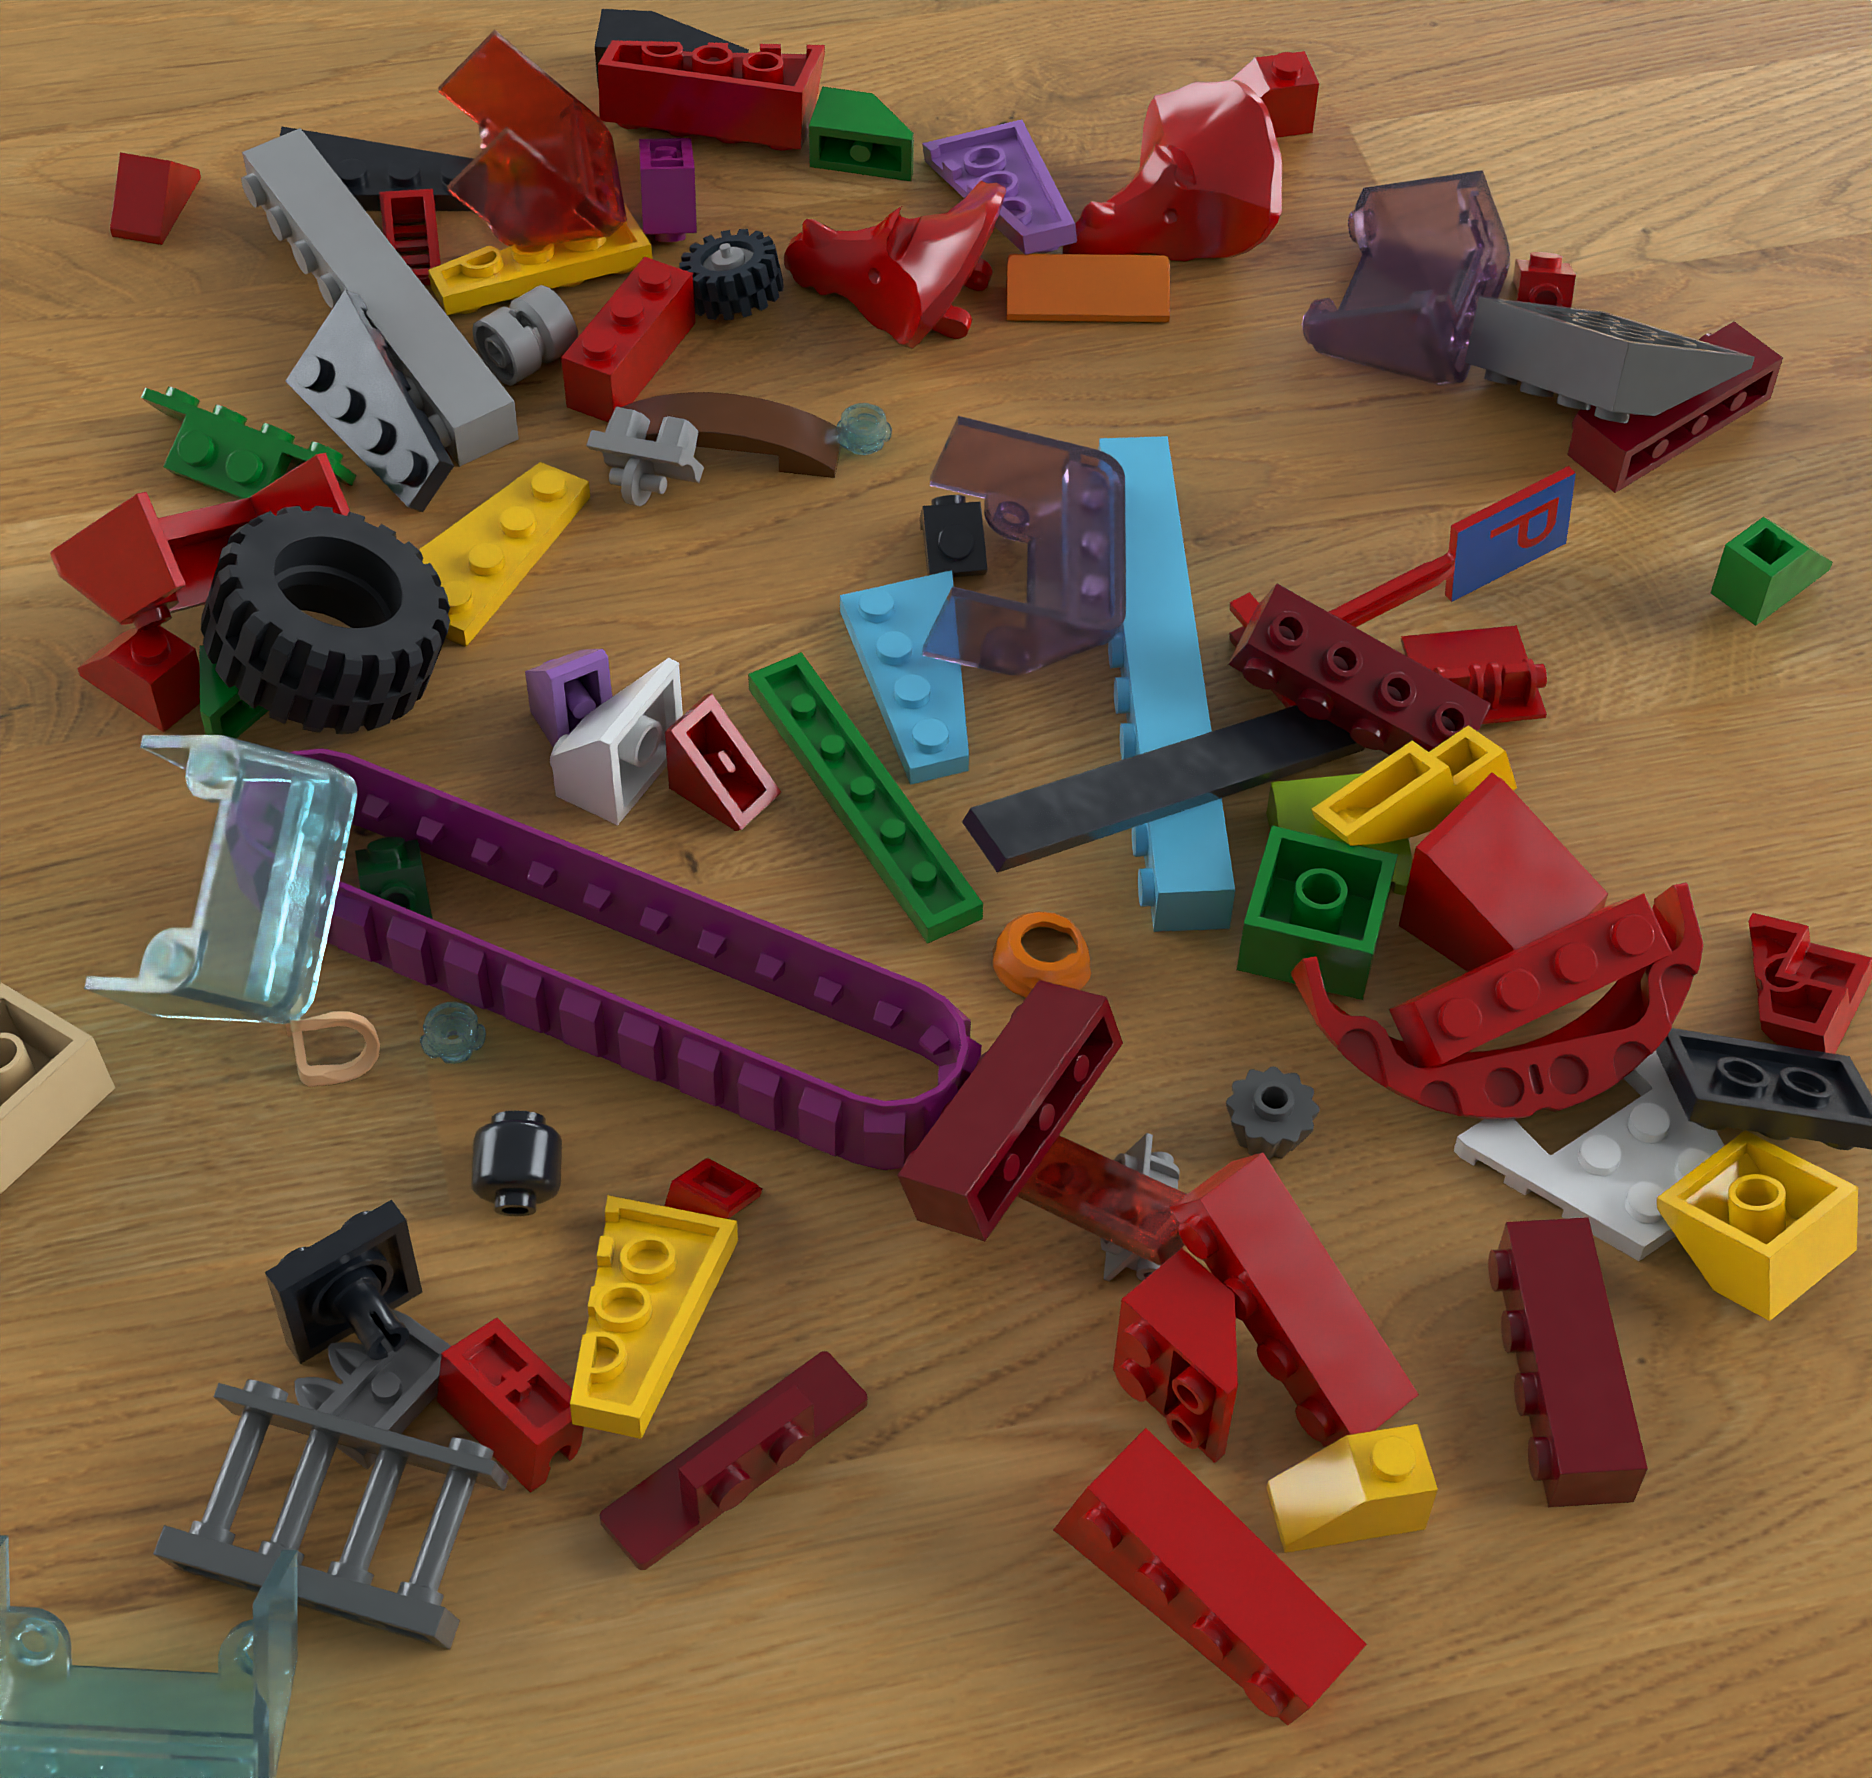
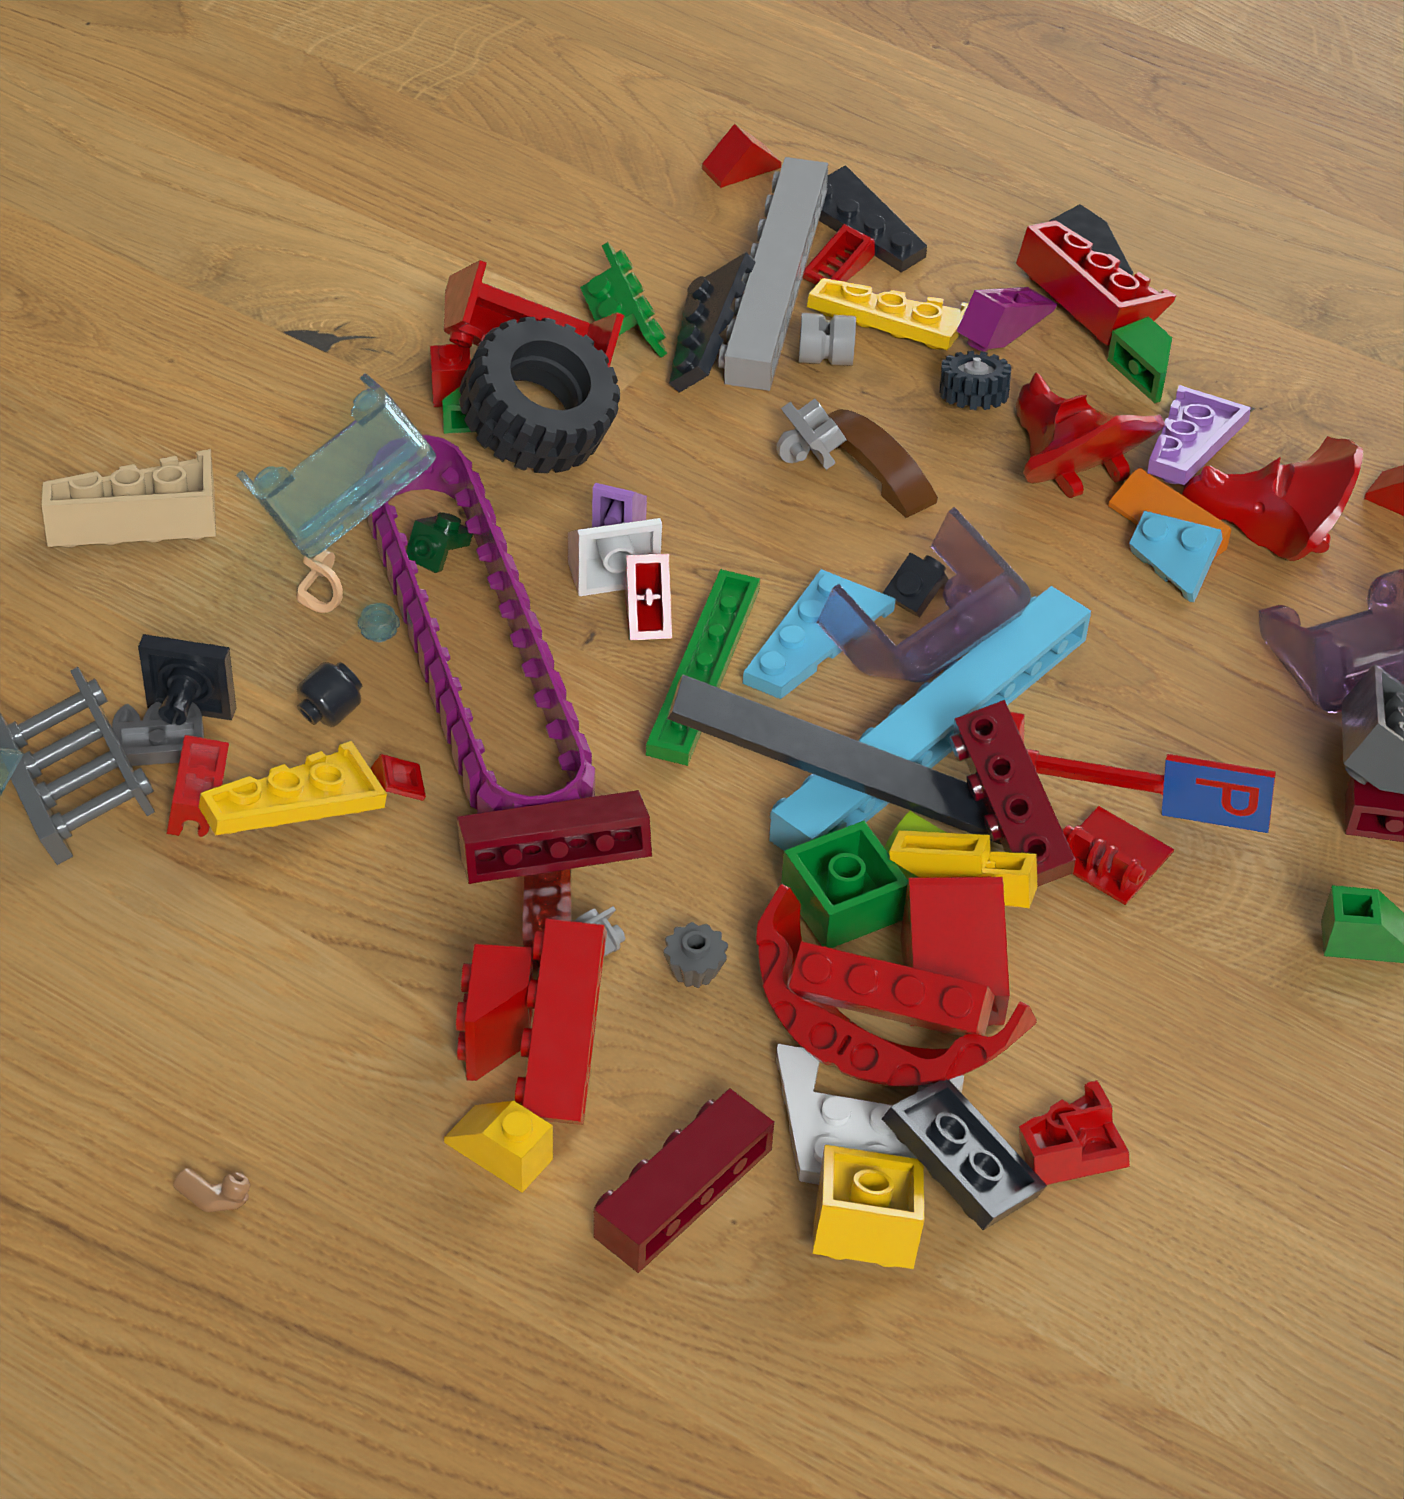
camera: 45 degrees right, 5 degrees down
(500, 543) = (675, 431): yellow wing -> none
(544, 155) = (967, 245): clear red windscreen -> none
(629, 339) = (878, 376): red brick -> none
(733, 1460) = (259, 887): dark red bracket -> none
(863, 429) = (943, 499): clear light blue plate -> none
(1022, 972) = (689, 820): orange piece -> none
(1138, 318) = (1176, 550): none -> medium azure wing
(1209, 1578) = (377, 1106): red wedge -> none

